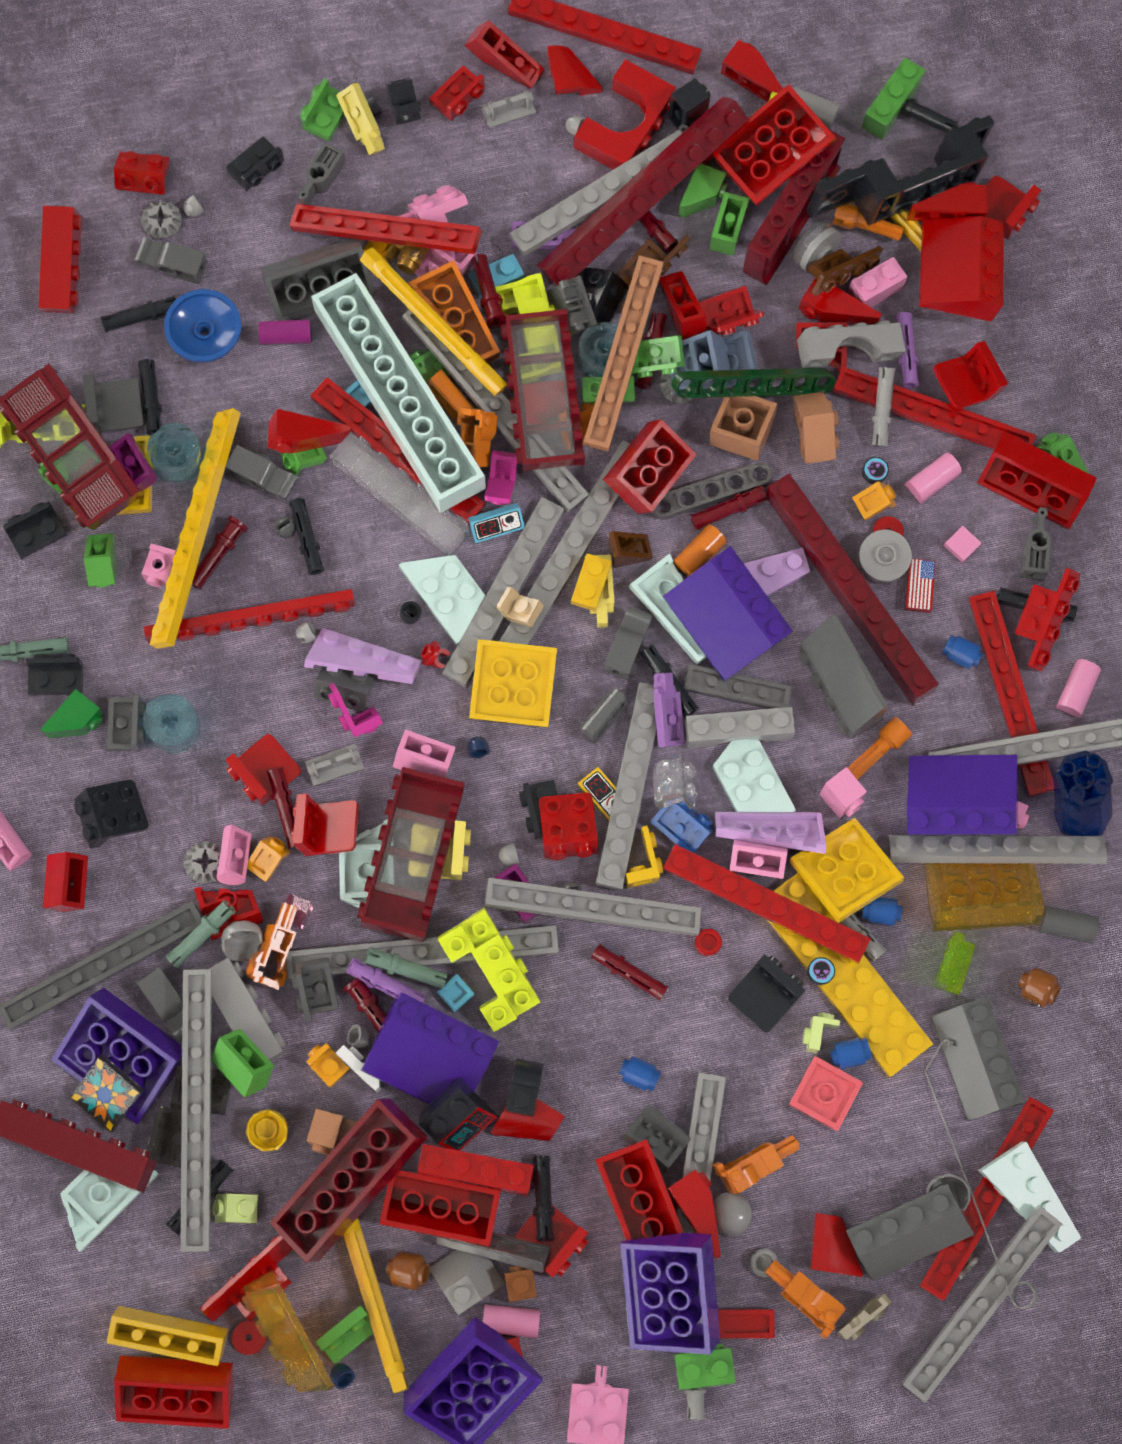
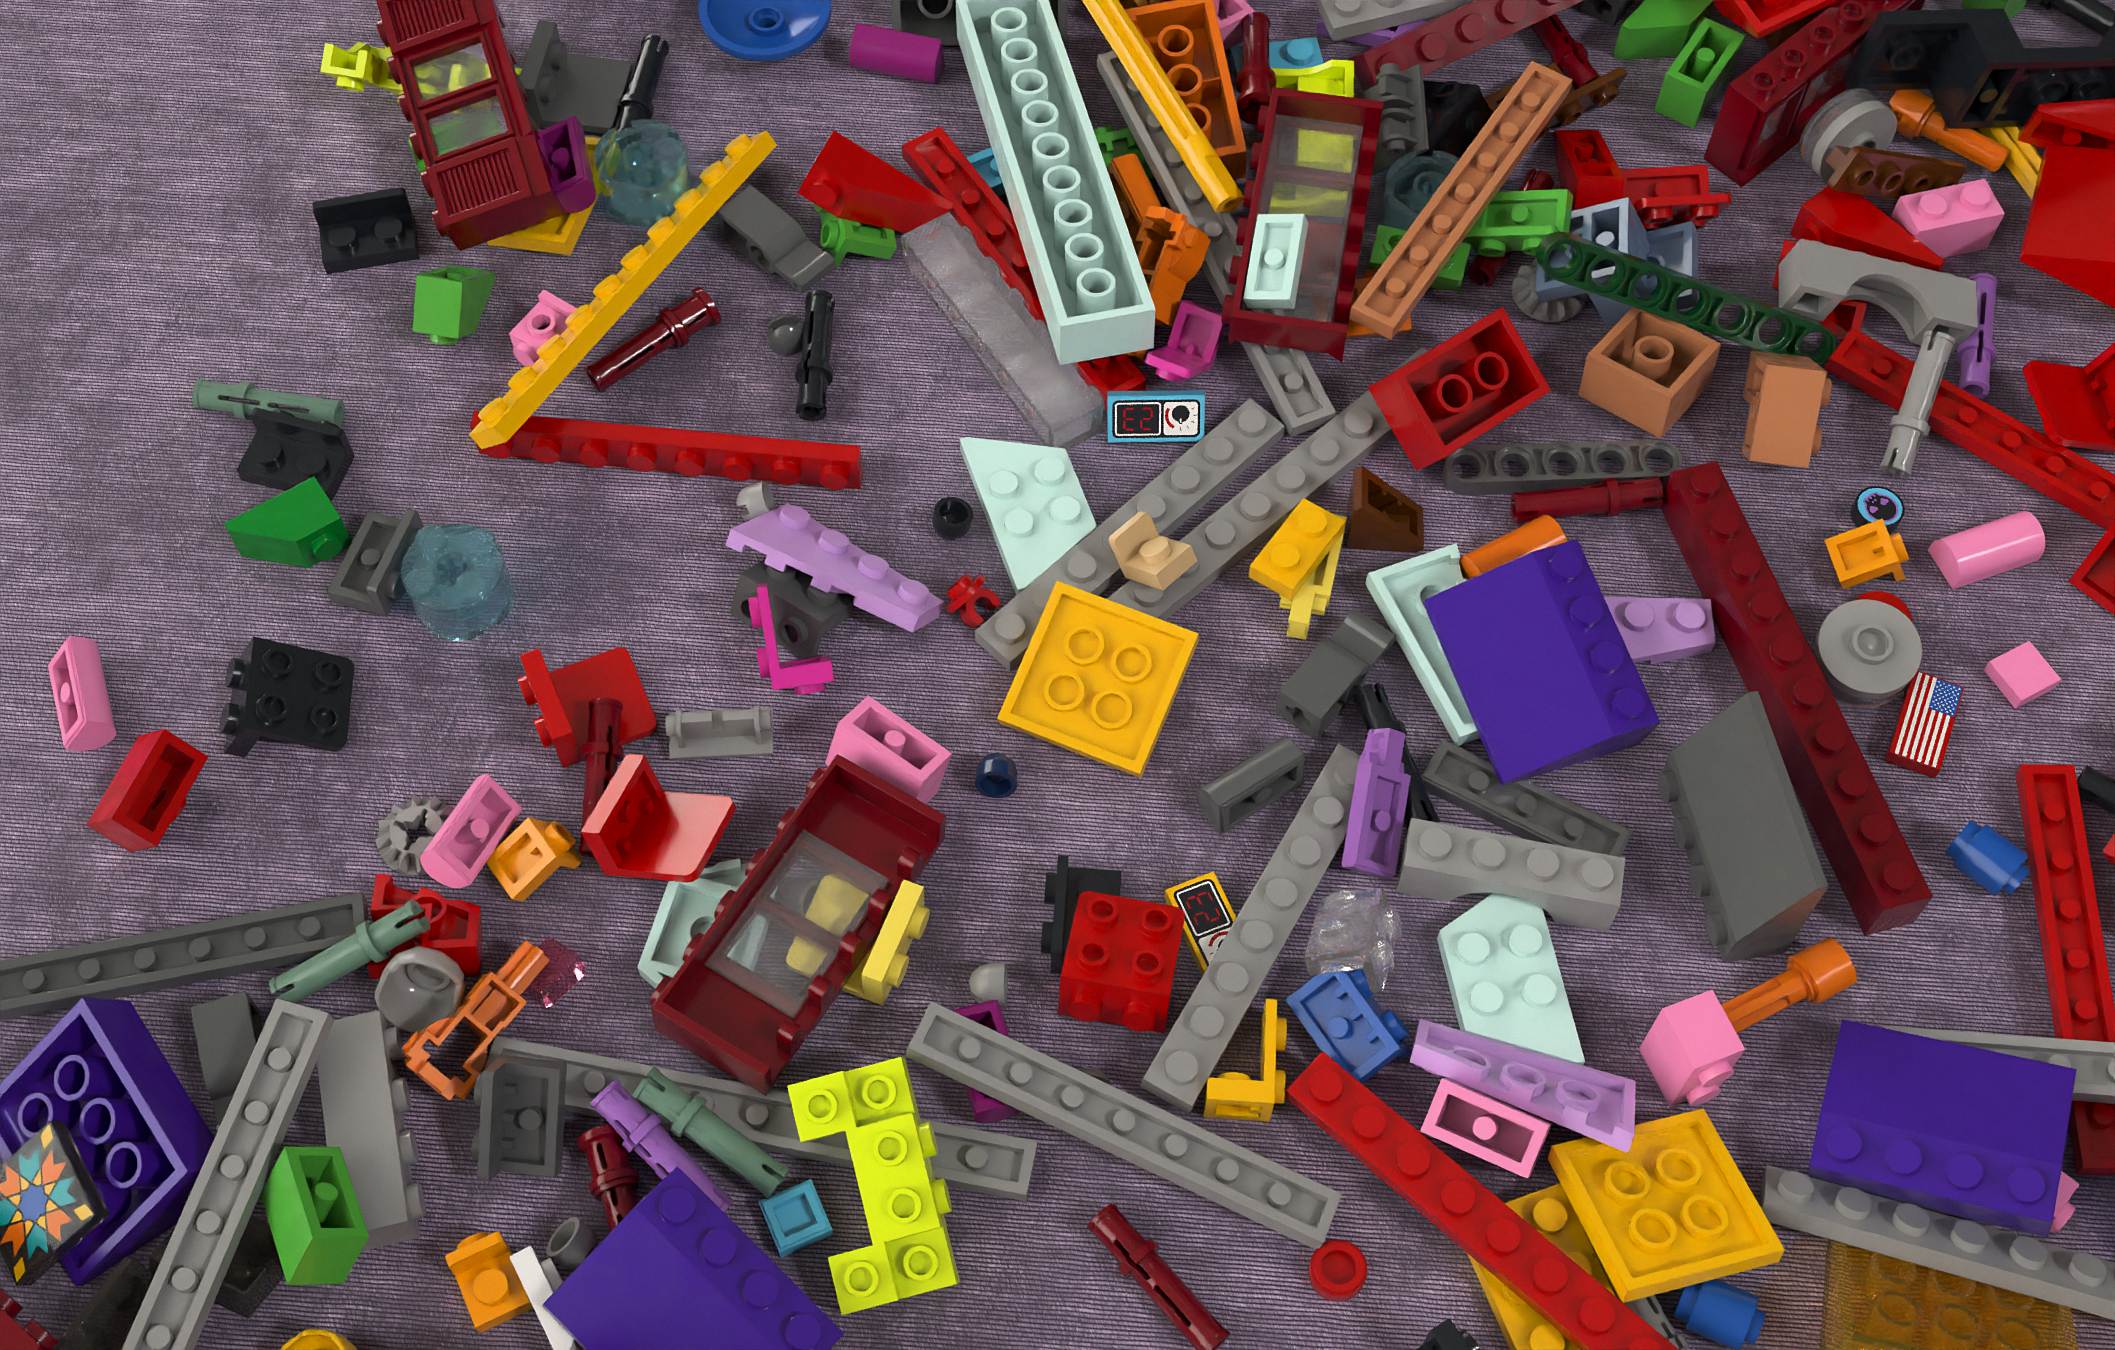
camera: 20 degrees right, 15 degrees down
(537, 424) = (1275, 261): none -> light aqua plate

